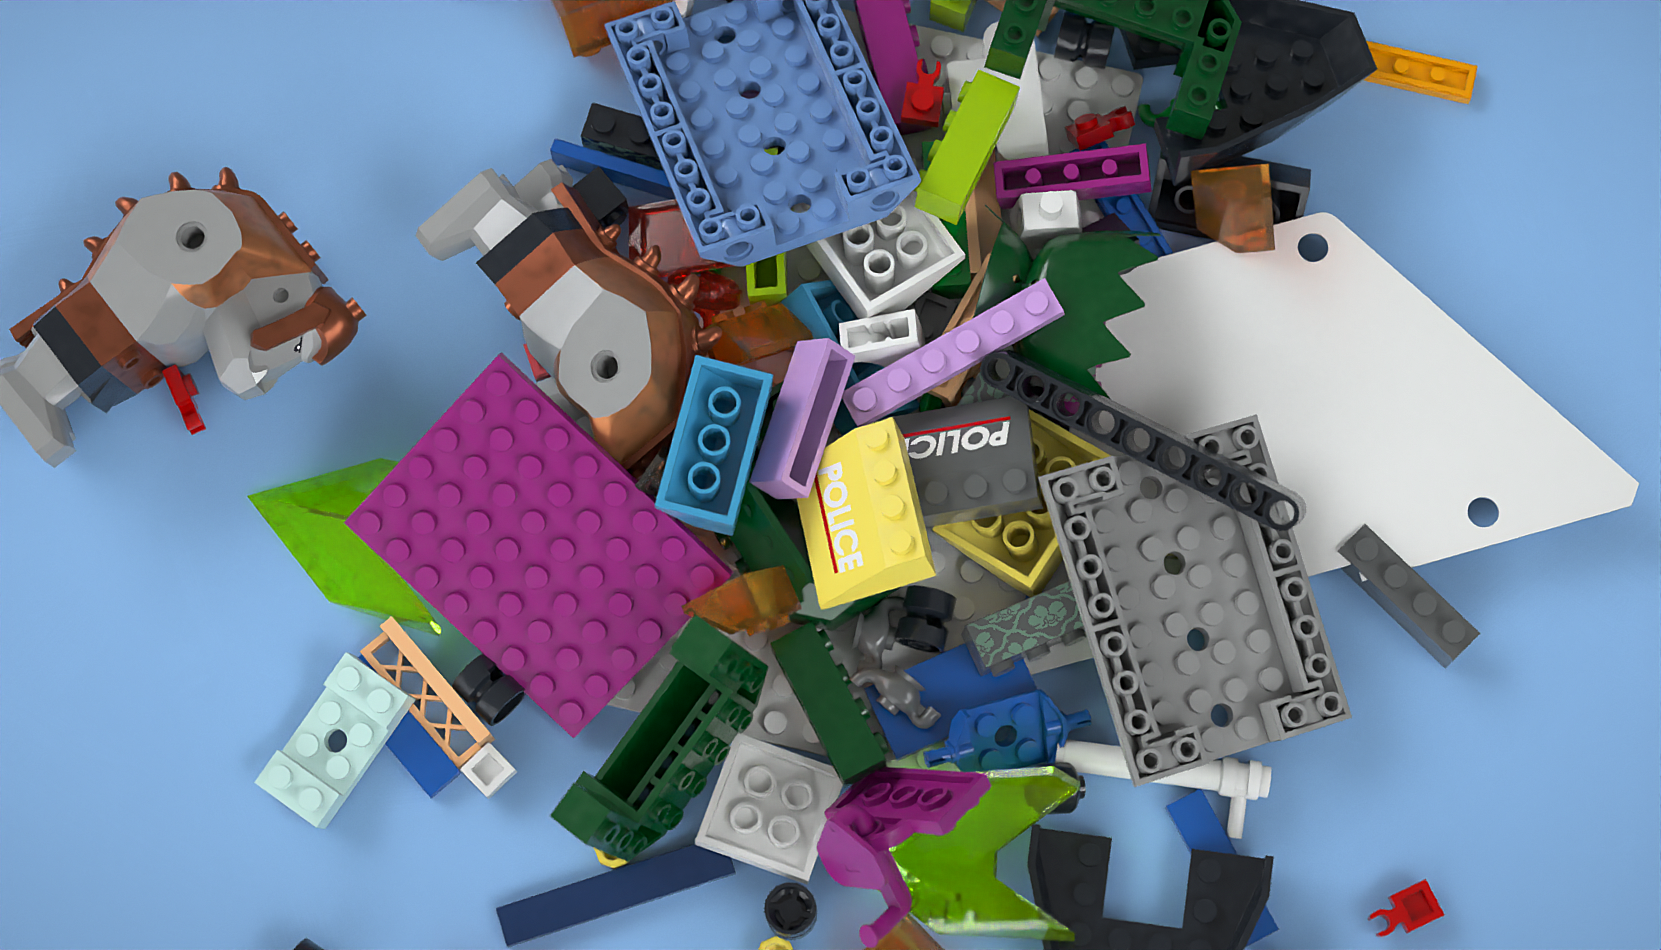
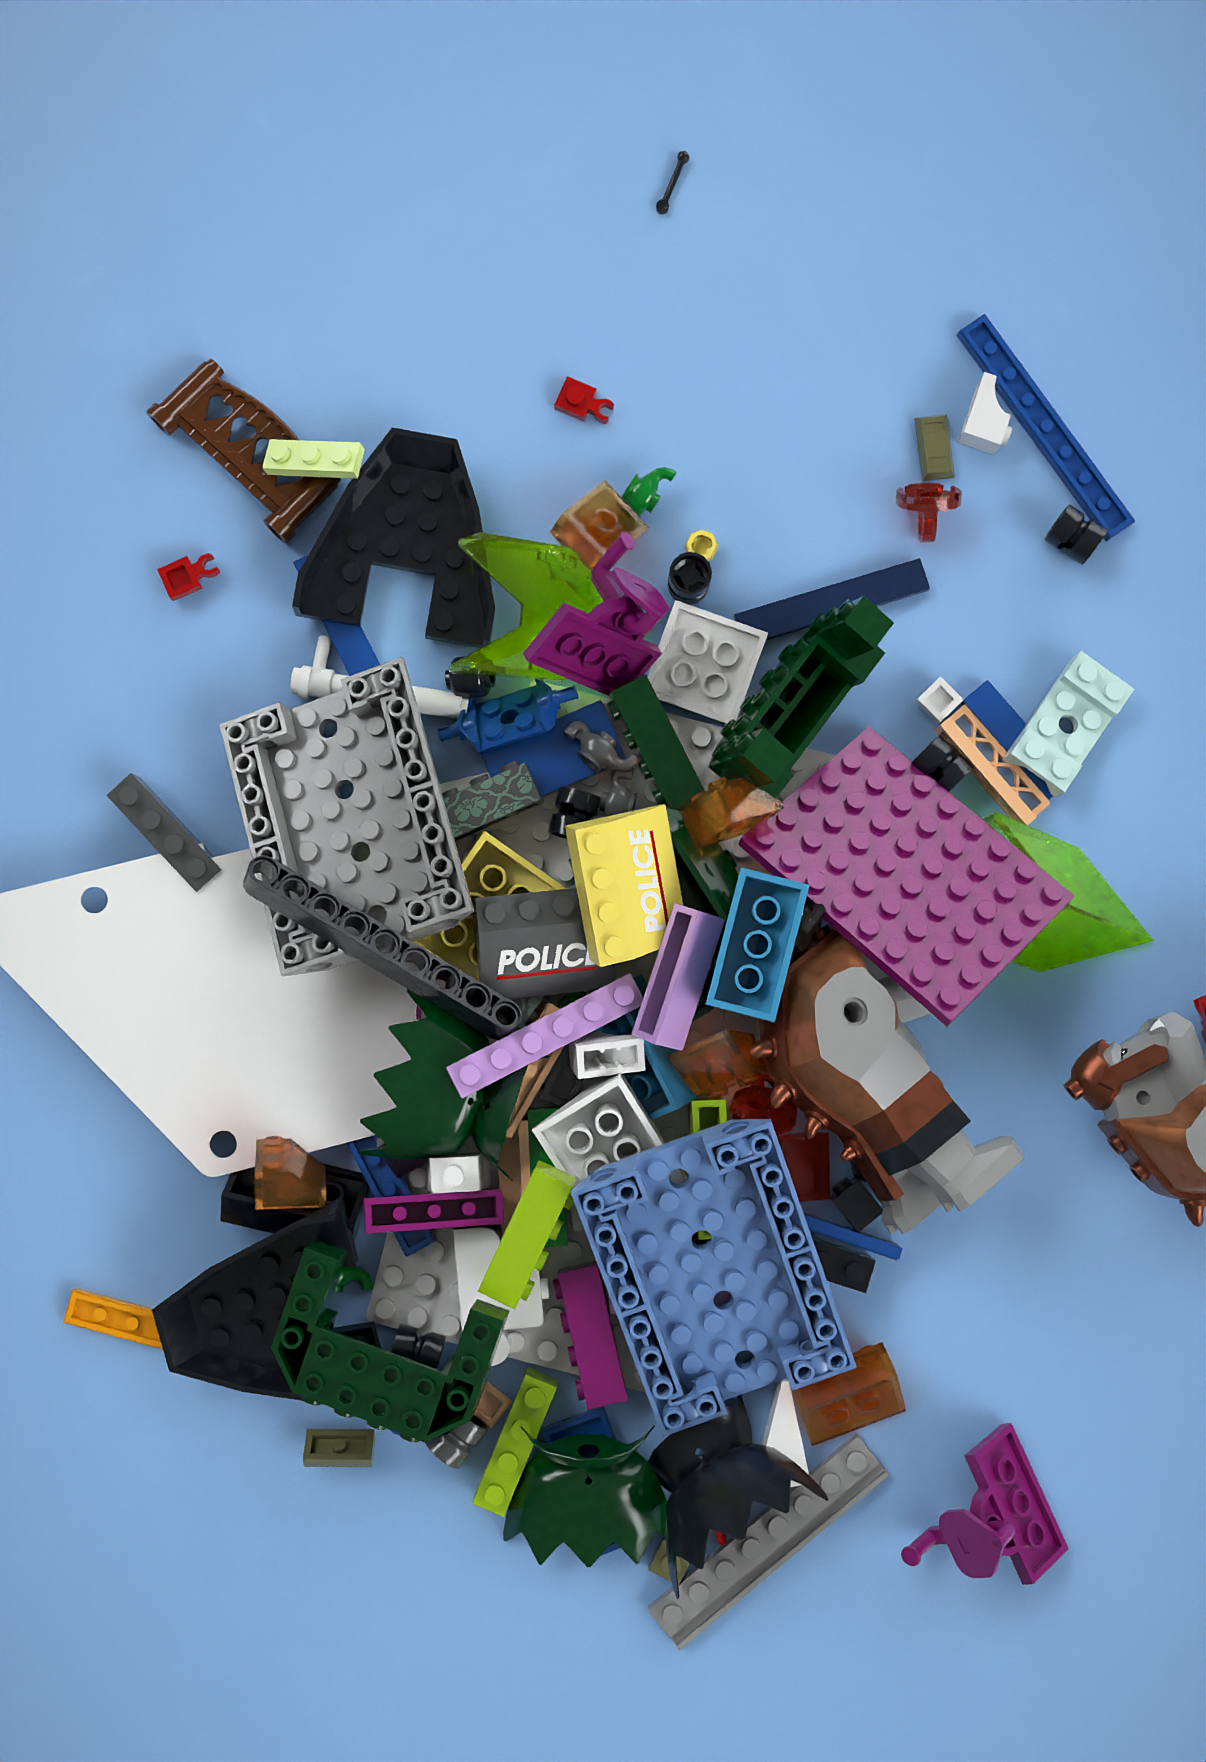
camera: 175 degrees right, 10 degrees up
(923, 99) = (565, 1286): red plate -> none
(1094, 128) = (409, 1261): red plate -> none

